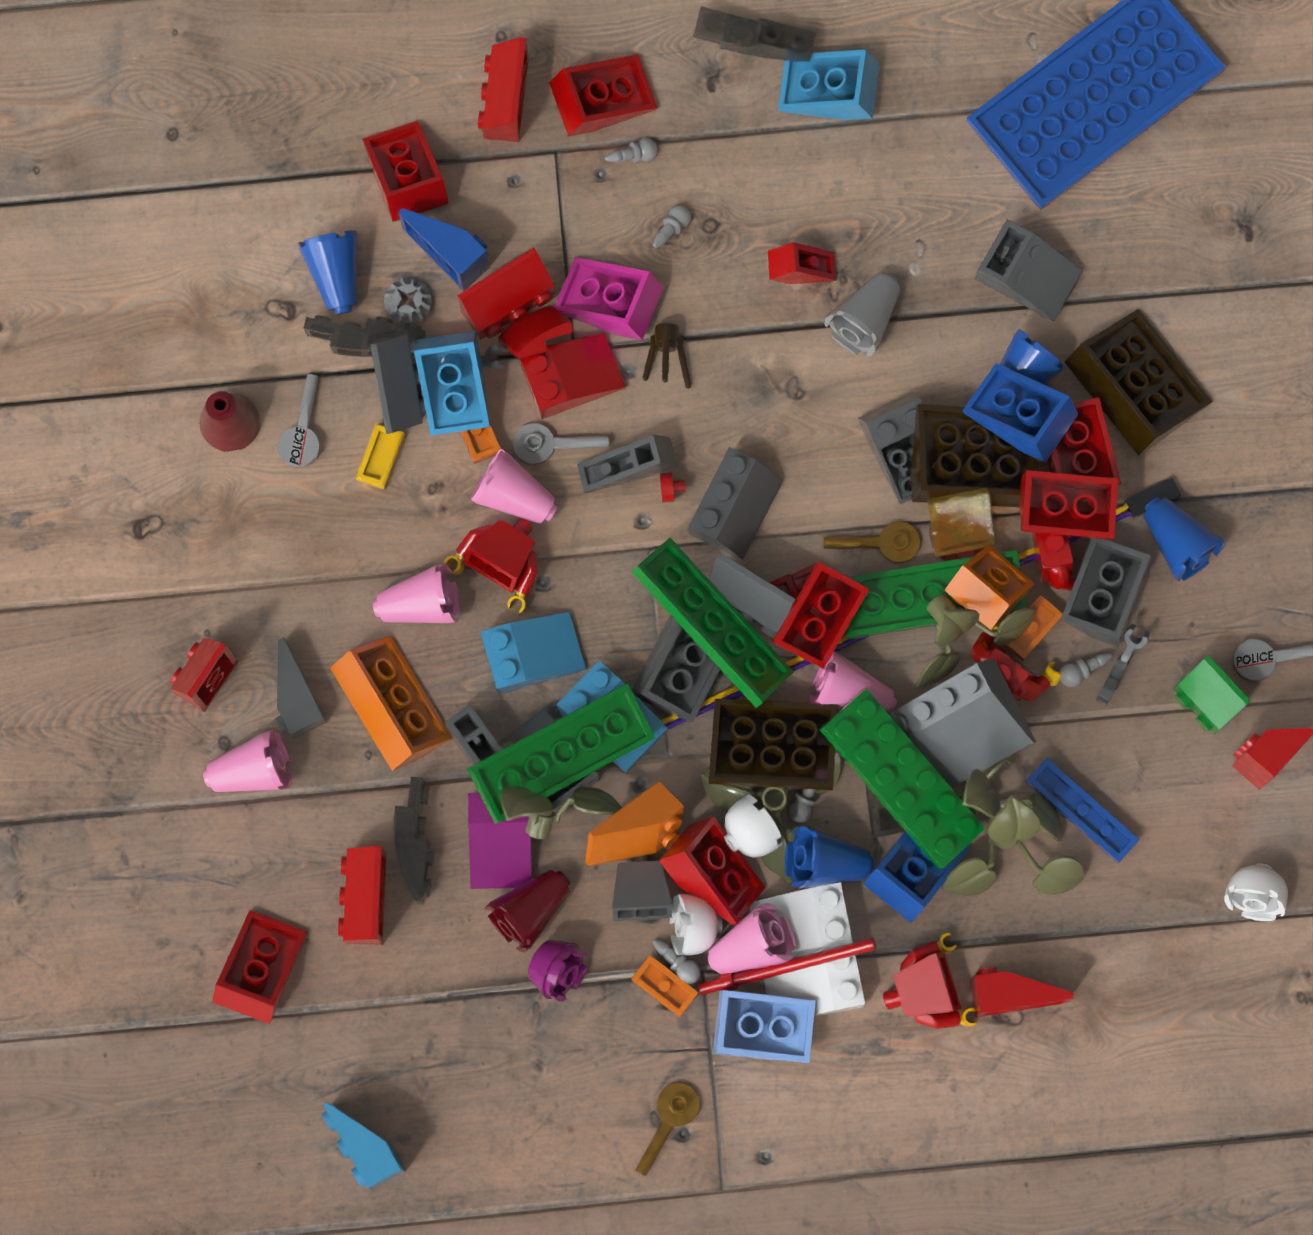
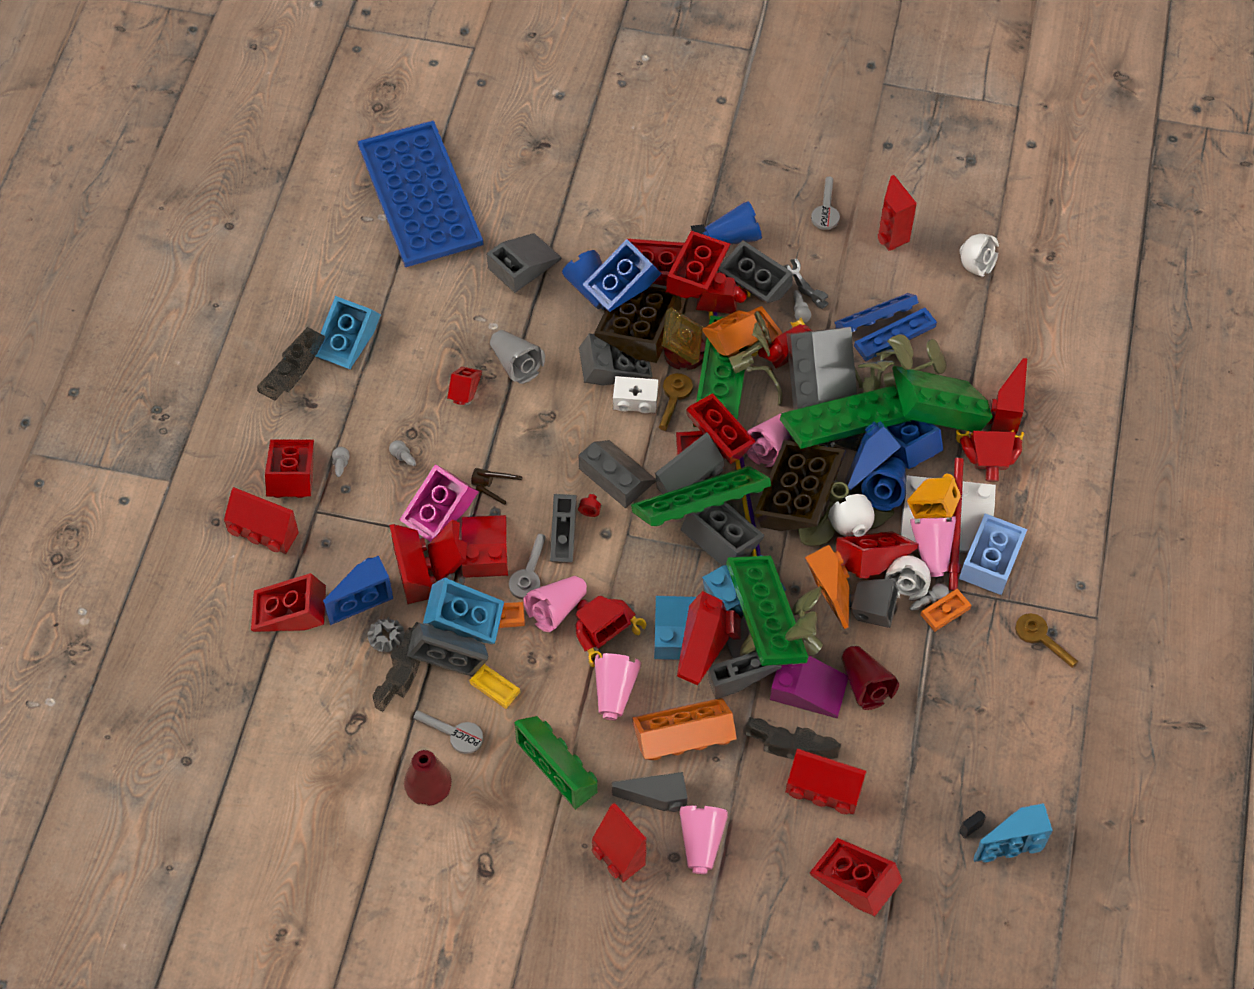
camera: 75 degrees left, 20 degrees down
(295, 561) = (555, 760): none -> green slope
(333, 268) = (343, 671): blue cone -> none
(370, 1091) = (972, 824): none -> black tile
(506, 688) = (702, 637): none -> red wedge
(540, 717) = (732, 624): none -> red tile
(557, 968) = (915, 670): magenta cone -> none
(801, 927) = (935, 498): none -> light orange torso
(852, 829) = (873, 450): none -> blue slope
(859, 473) = (635, 394): none -> white brick
(978, 897) = (941, 400): none -> green slope
(1108, 774) = (884, 310): none -> blue plate
(1137, 381) = (610, 224): dark brown slope -> none
(1210, 695) = (843, 239): slope -> none

